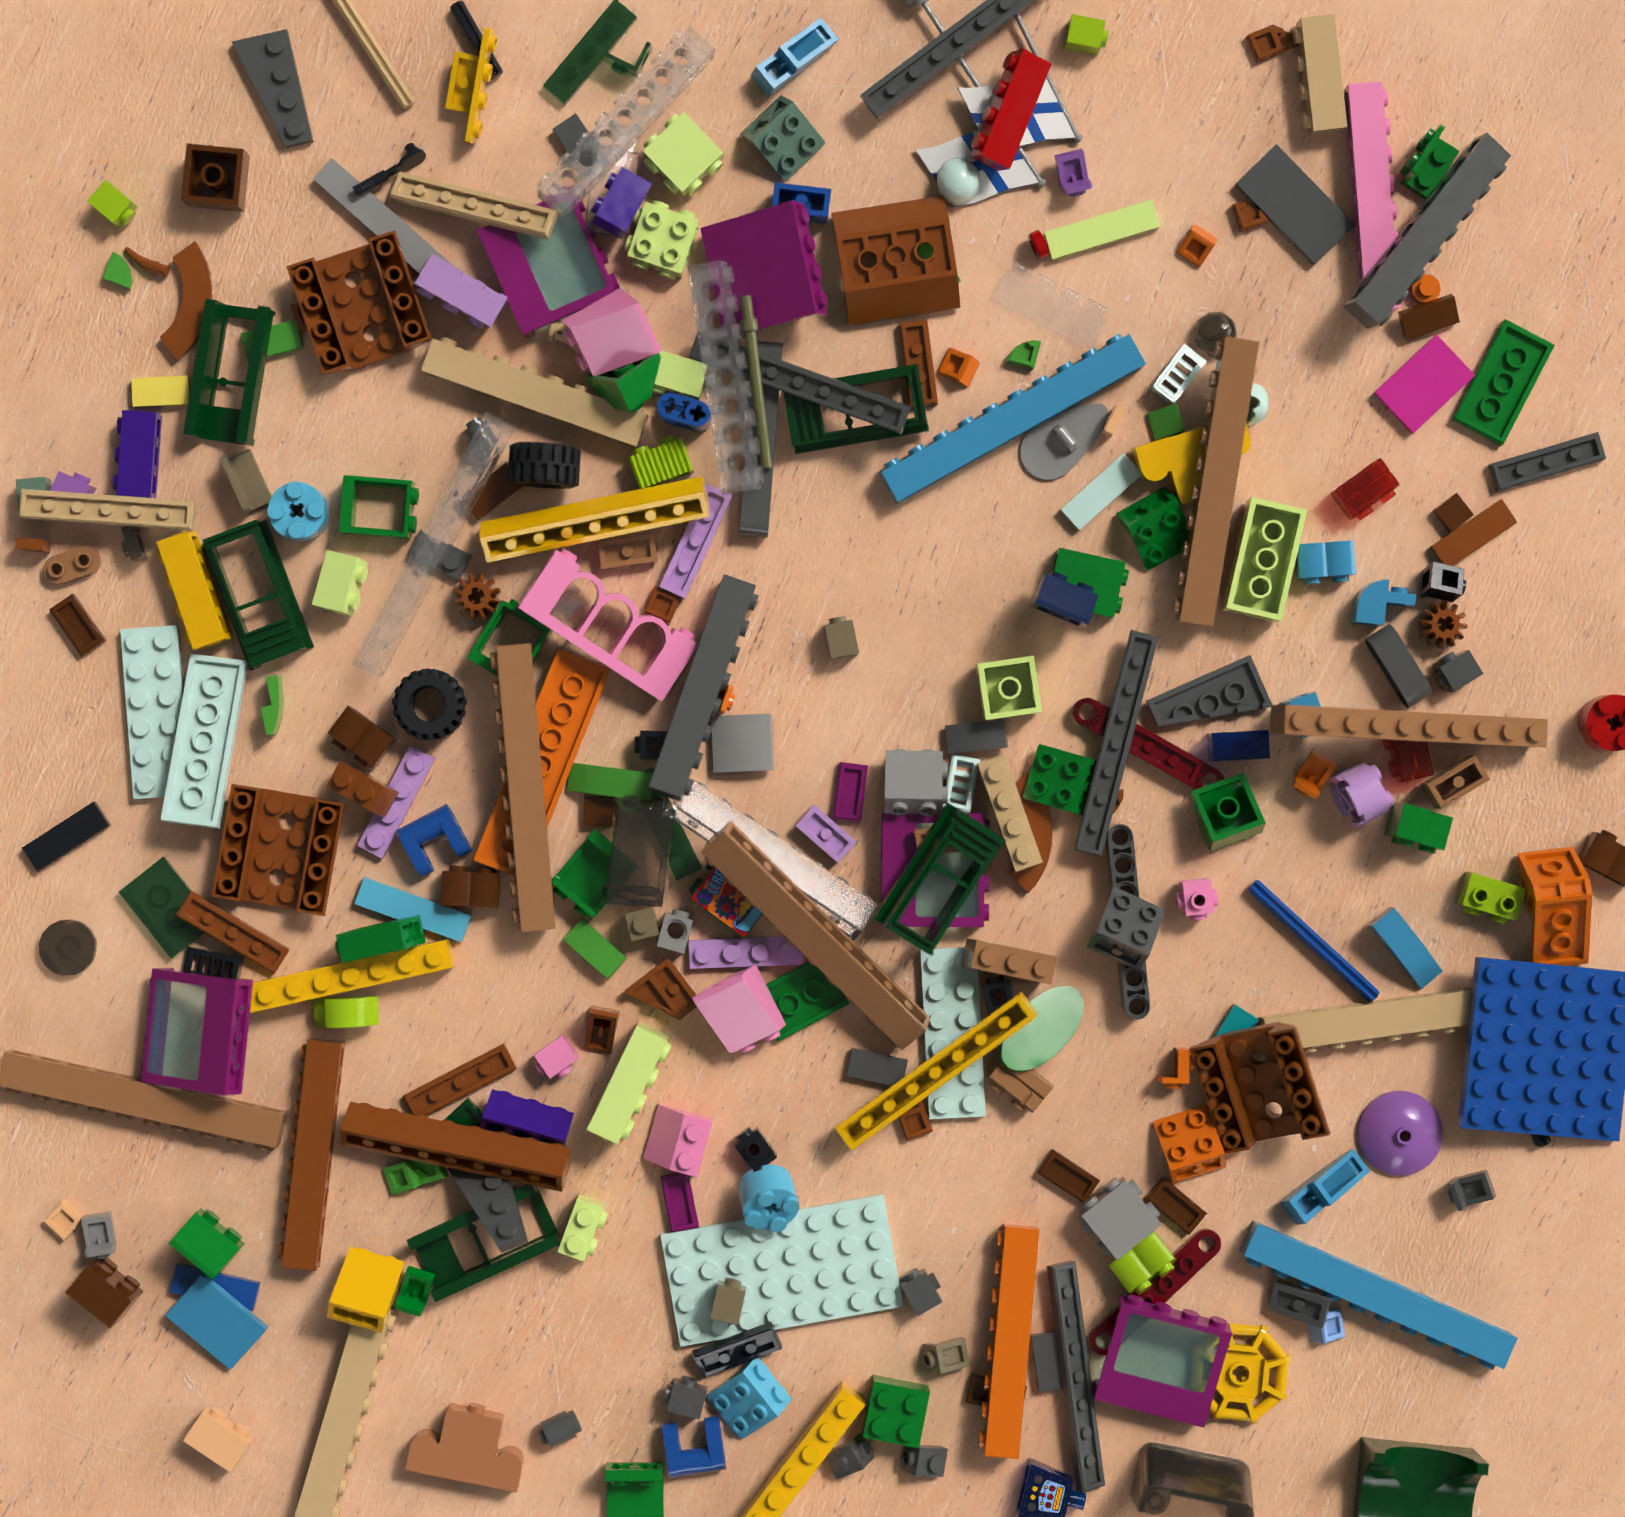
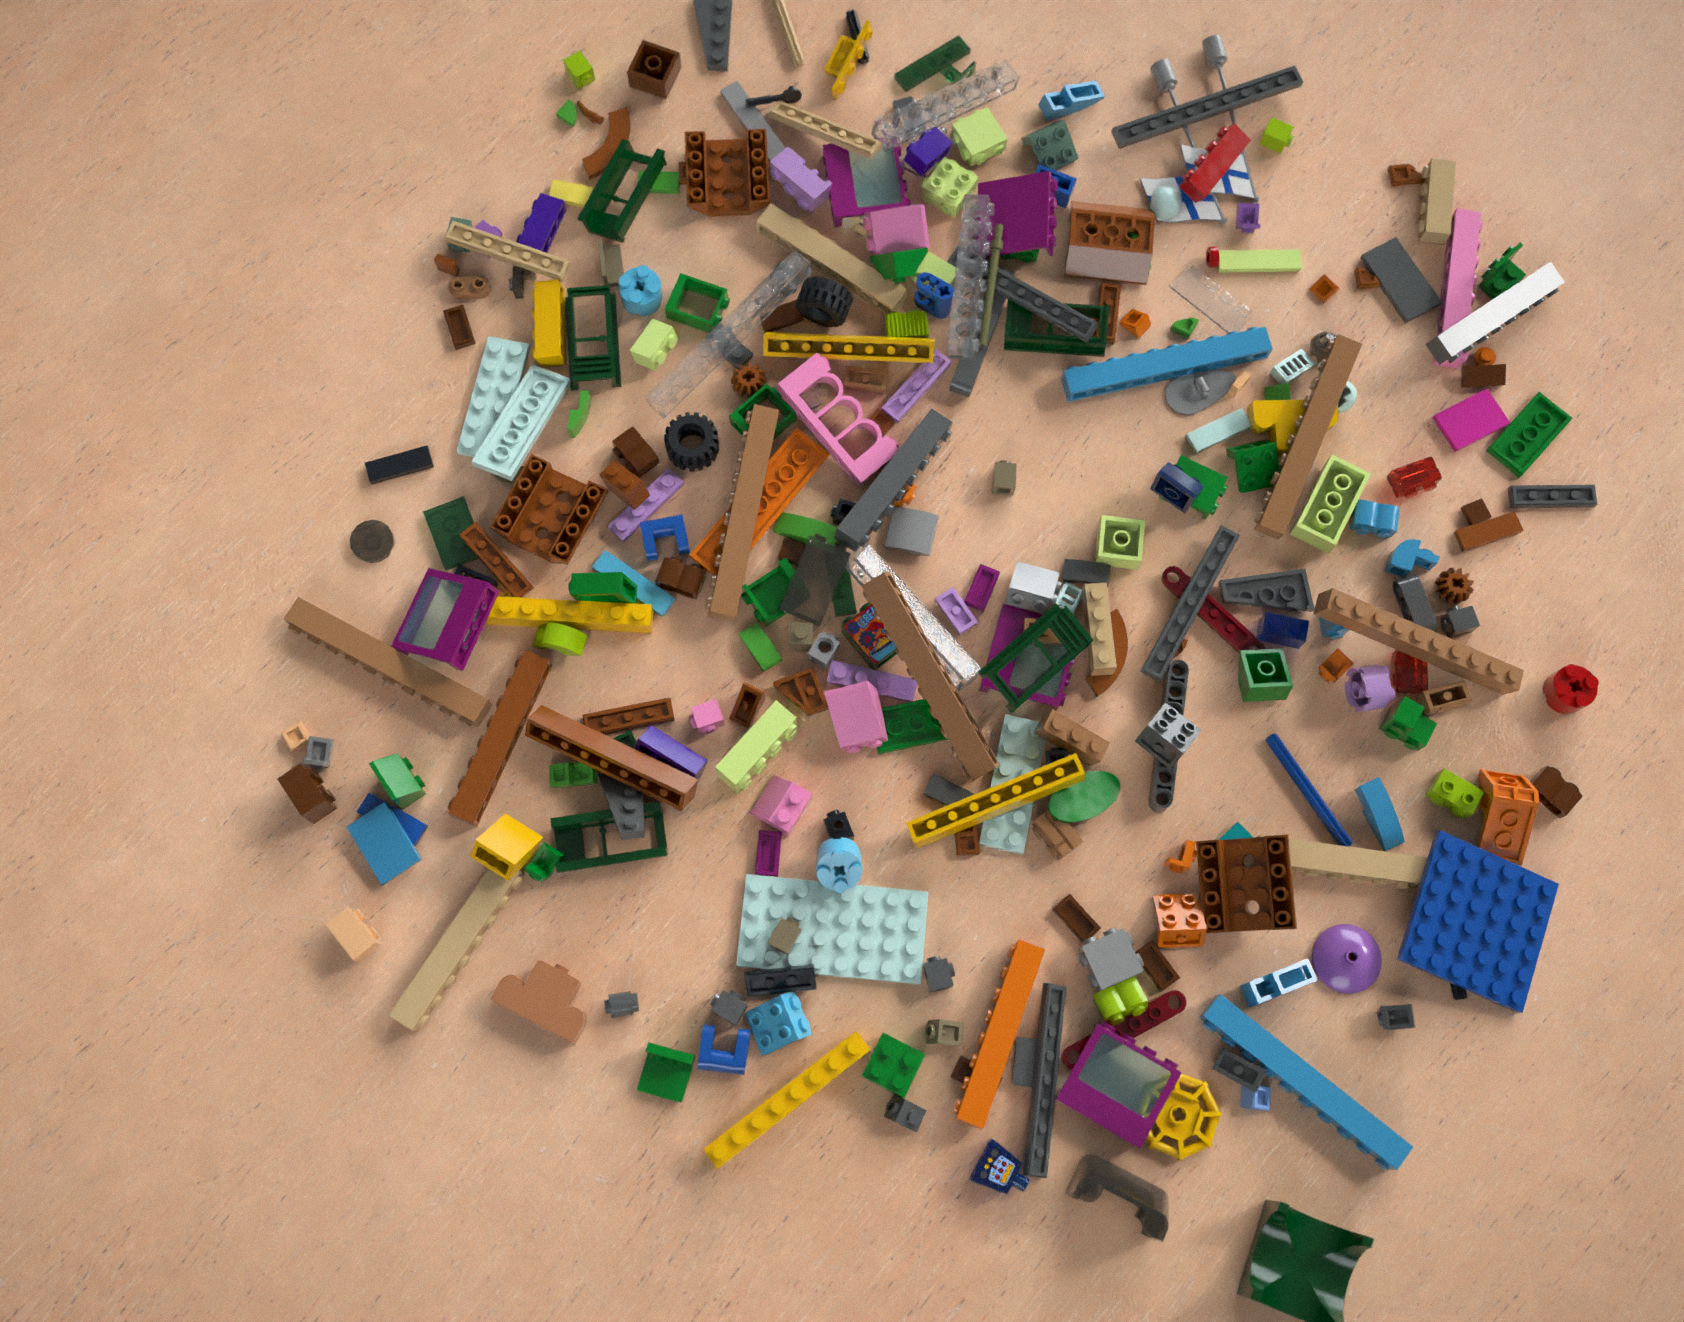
camera: 10 degrees right, 15 degrees down
(582, 1225) = (687, 850): yellowish green brick -> none
(850, 1456) = (845, 1093): flat silver bracket -> none
(1059, 779) = (1142, 617): green bracket -> none
(1189, 890) = (1226, 731): bright pink brick -> none
(1442, 582) = (1459, 555): black brick -> none

